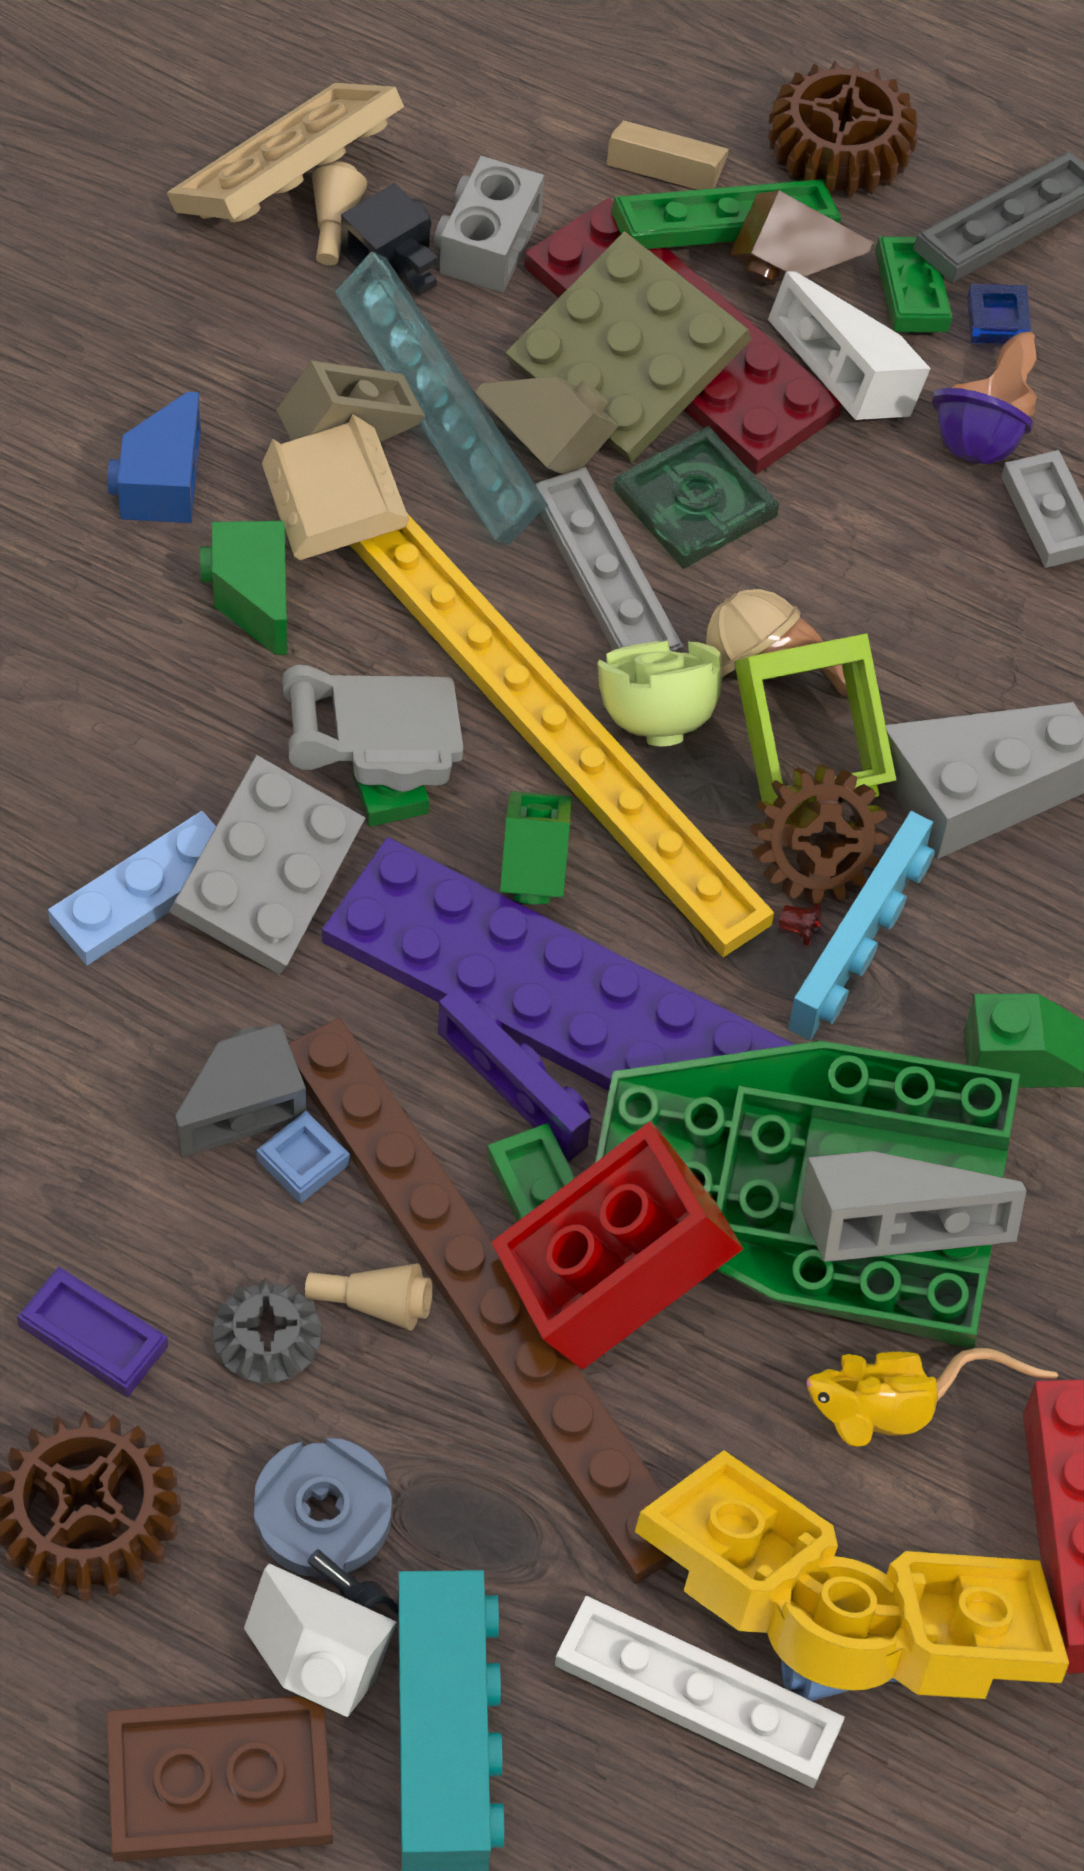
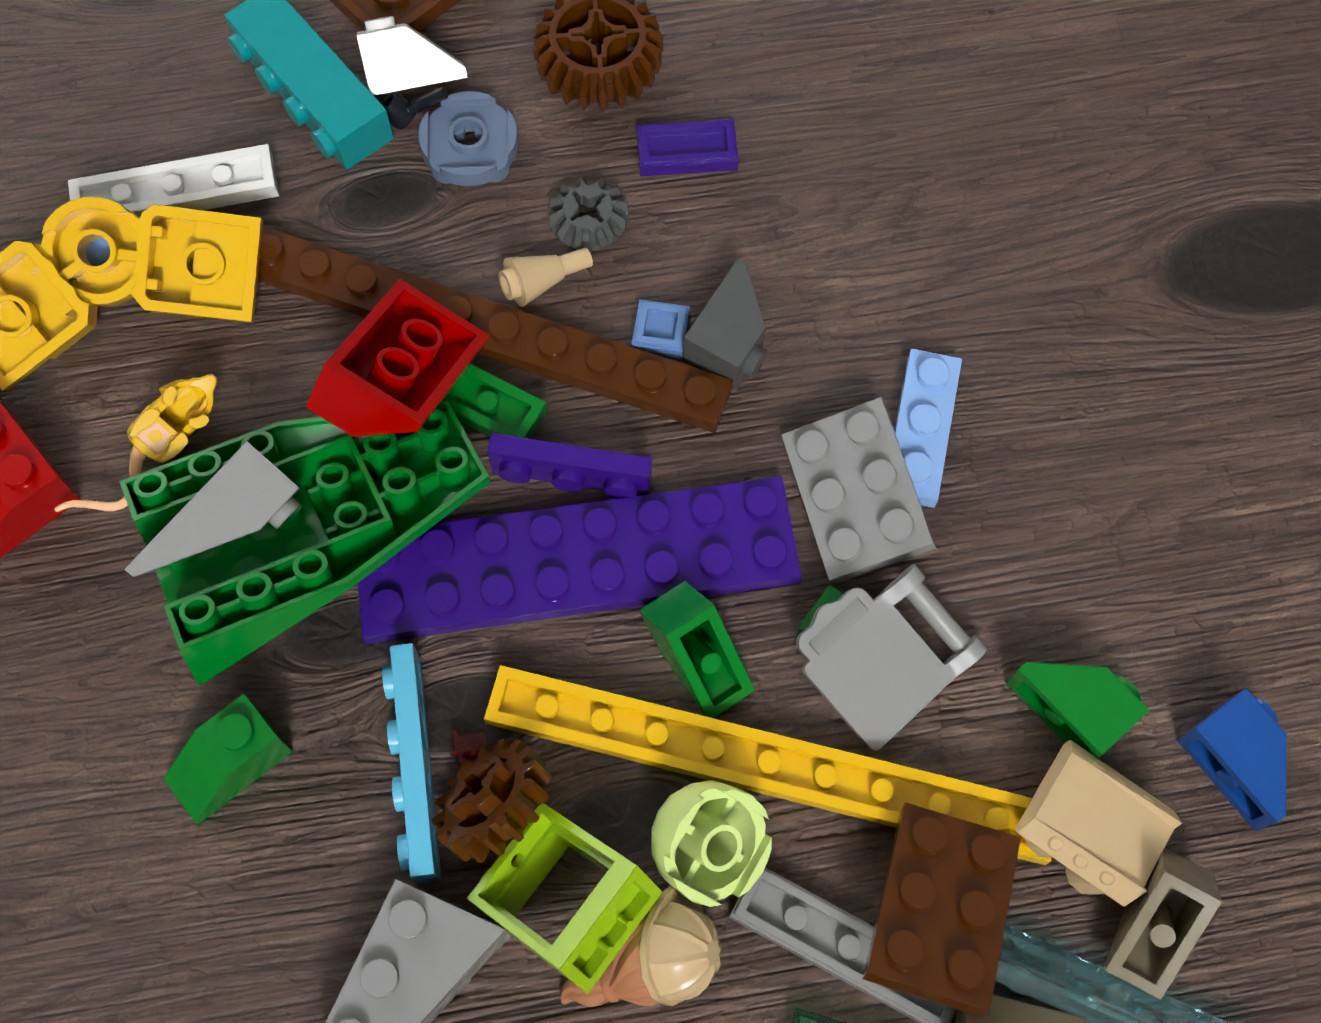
camera: 145 degrees right, 10 degrees up
(517, 512) = (943, 910): none -> reddish brown plate

